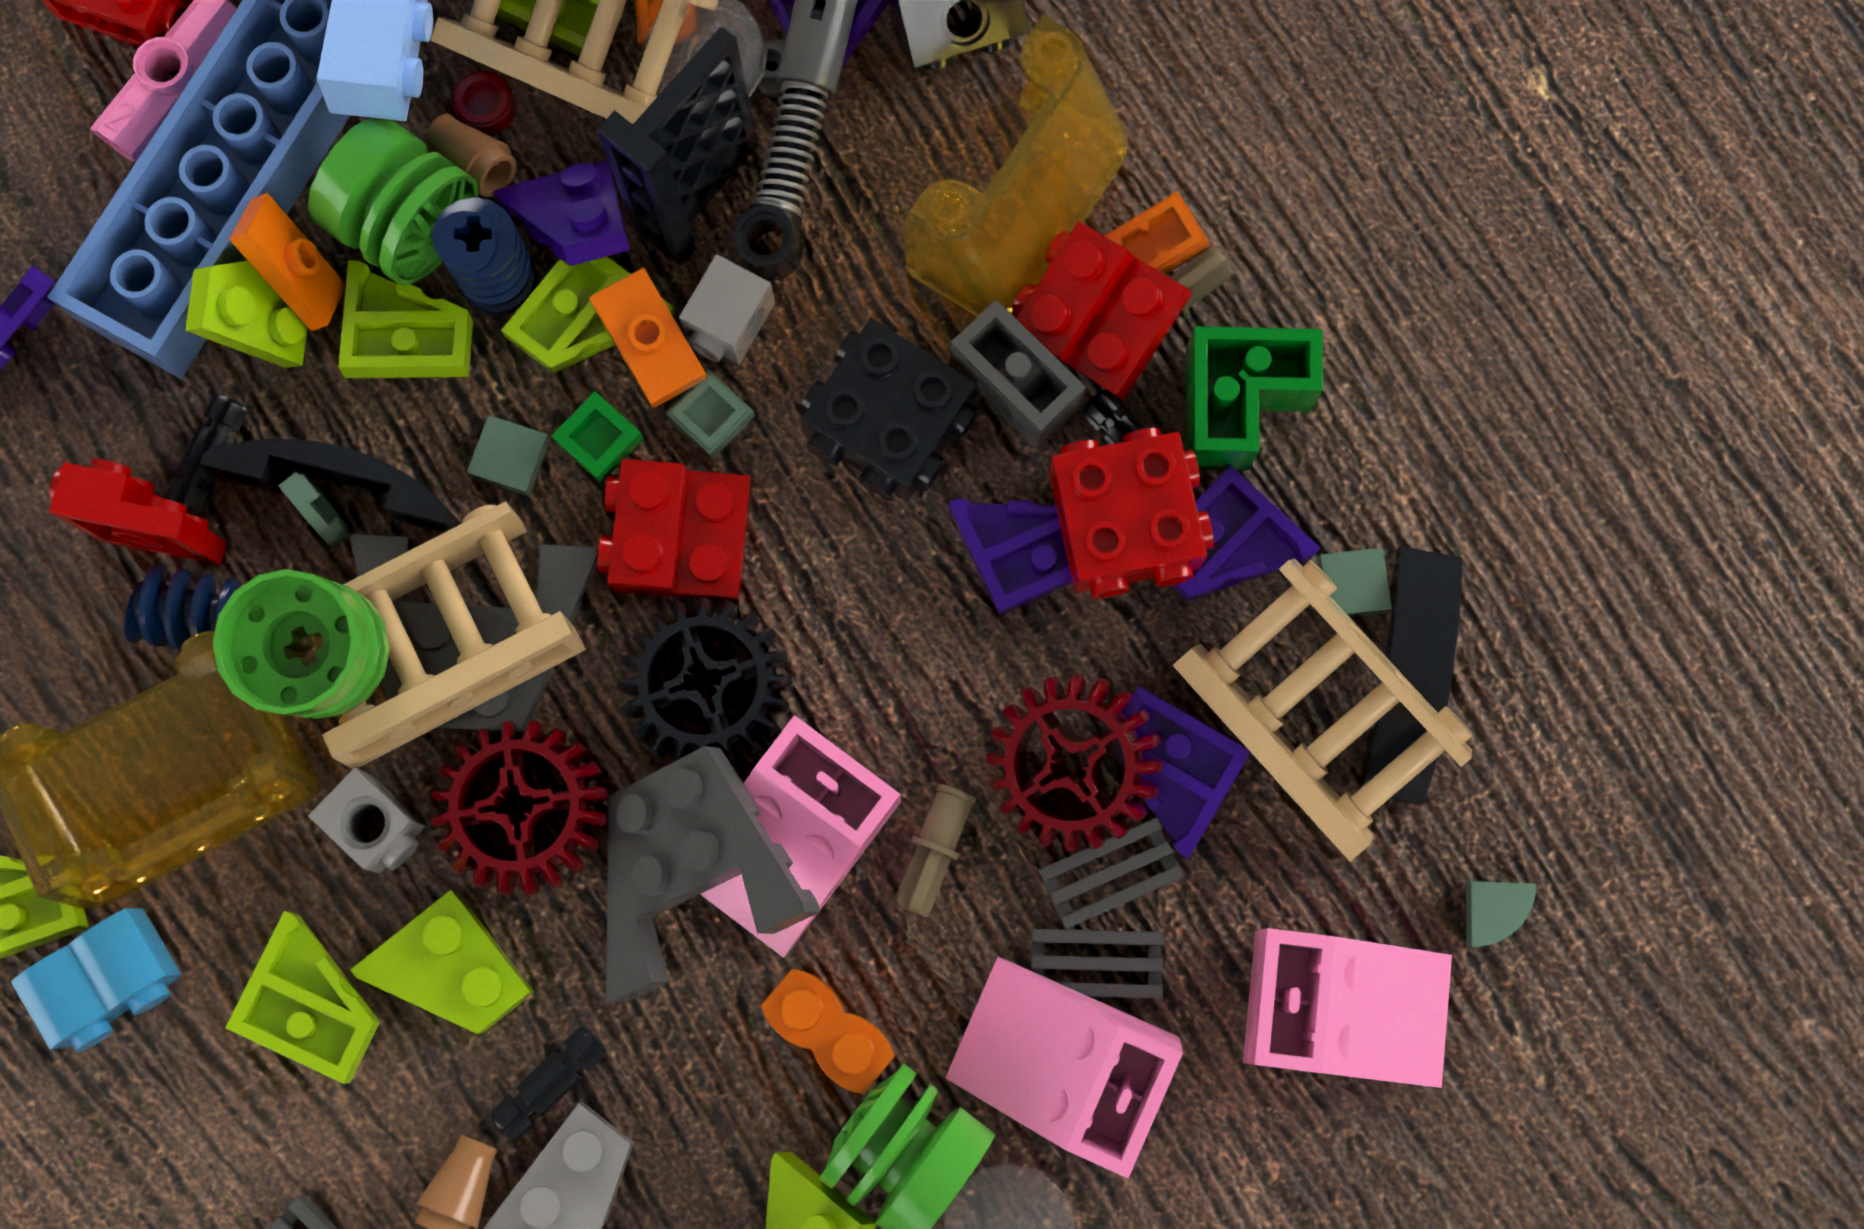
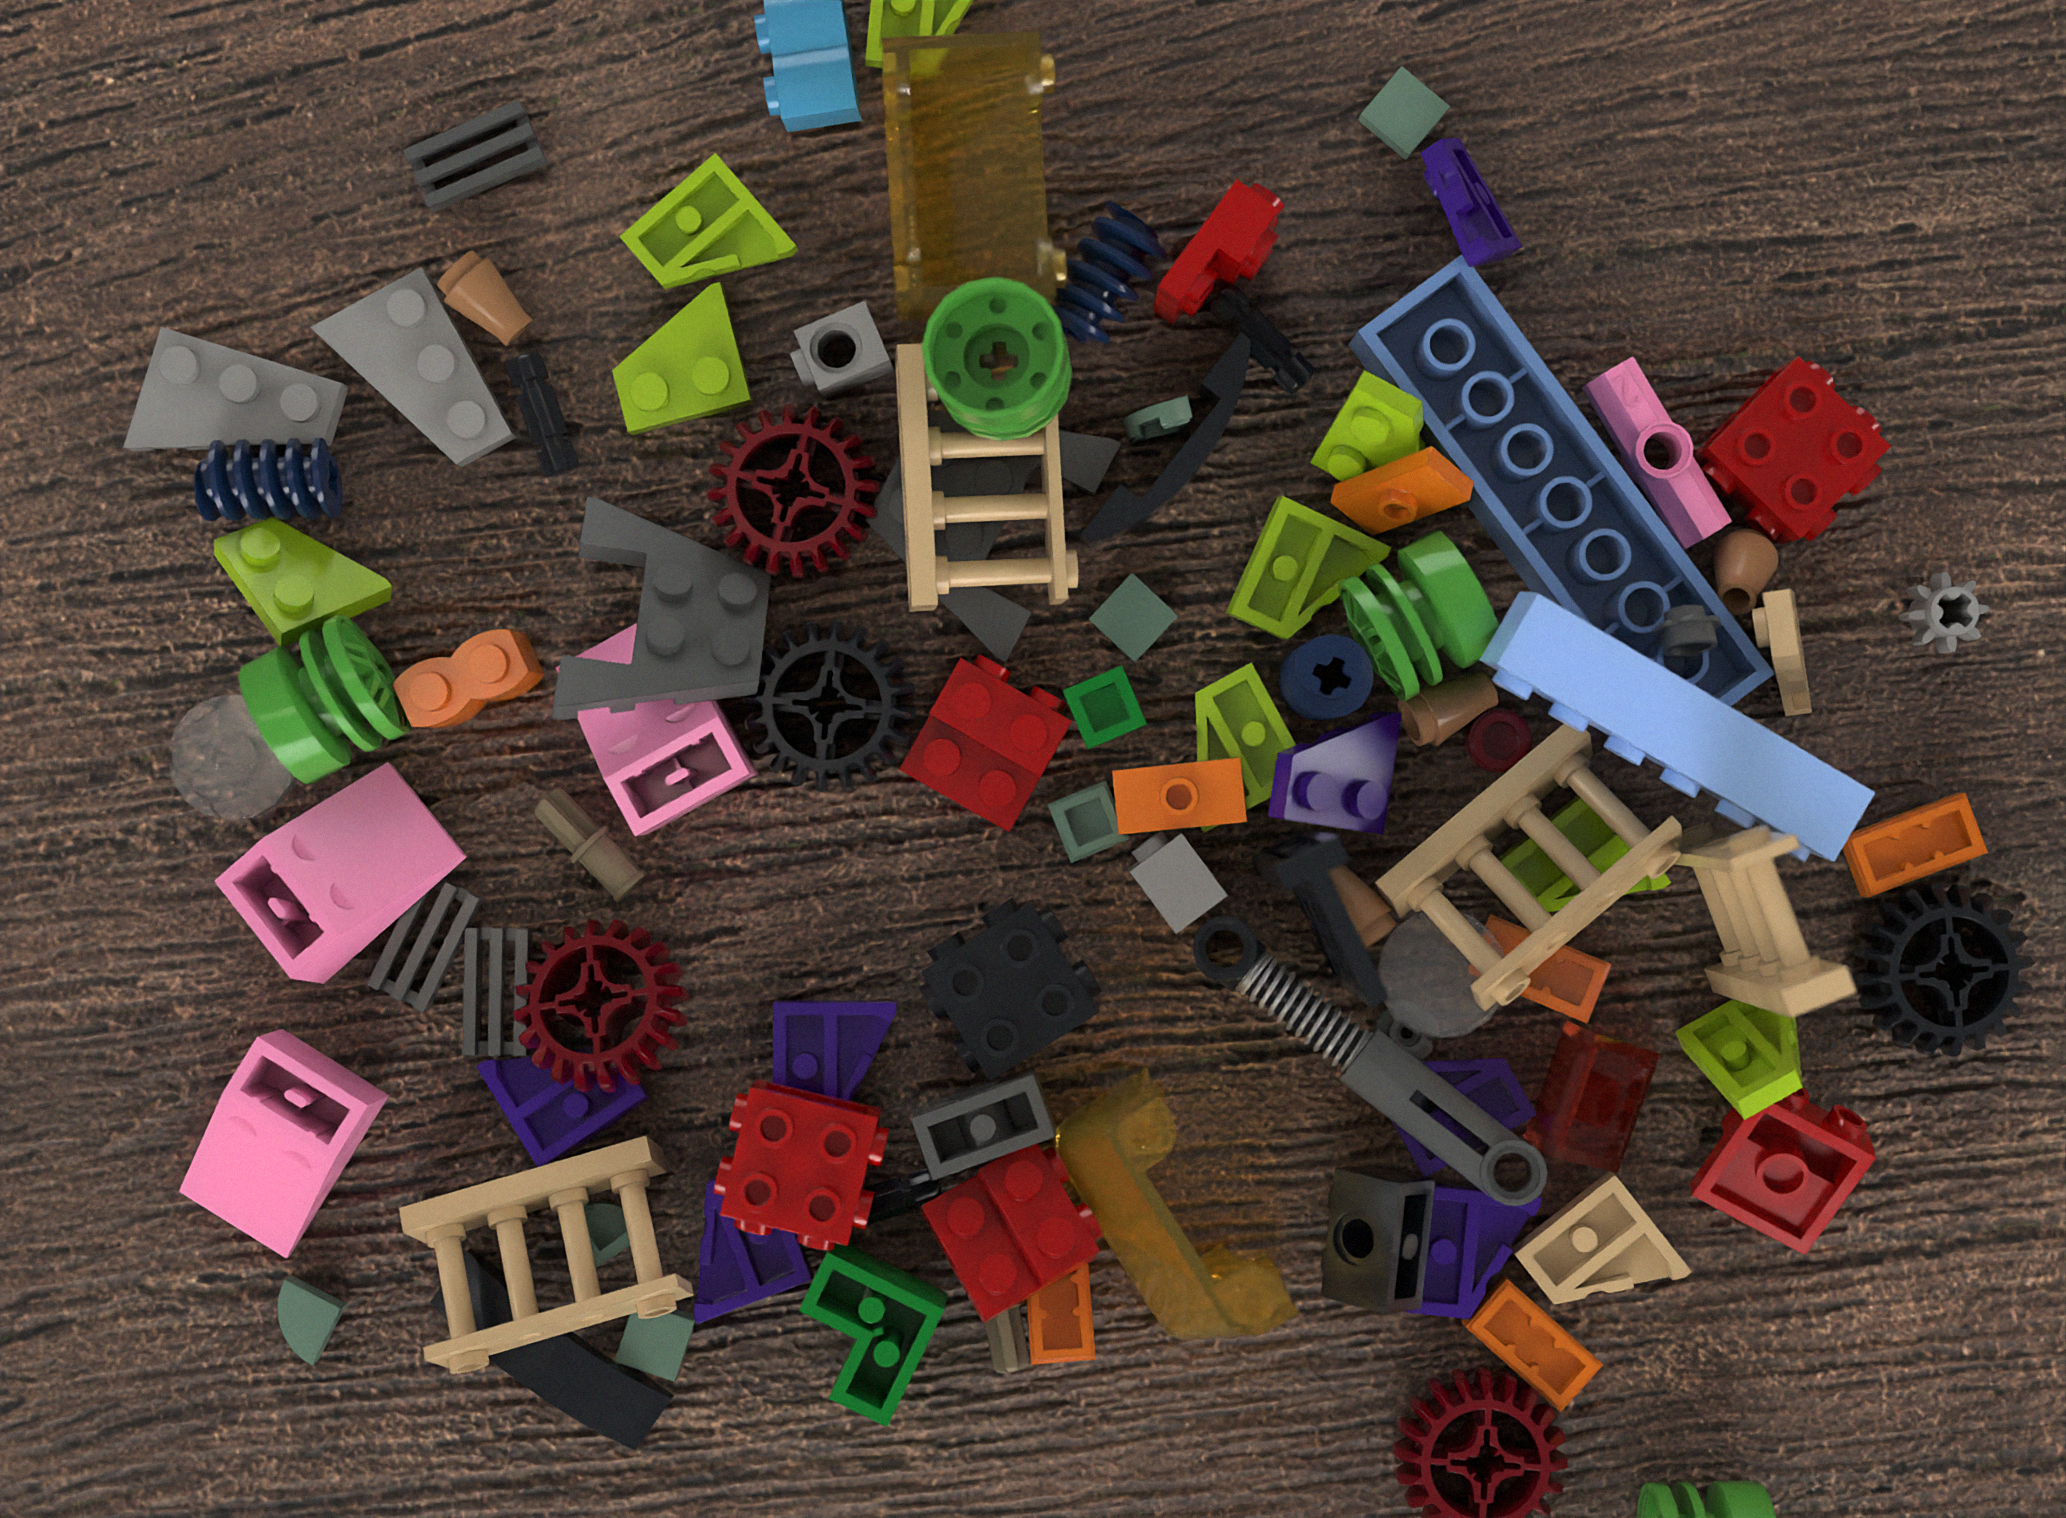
camera: 115 degrees right, 10 degrees up
(1272, 666) = (606, 1229): none -> sand green tile

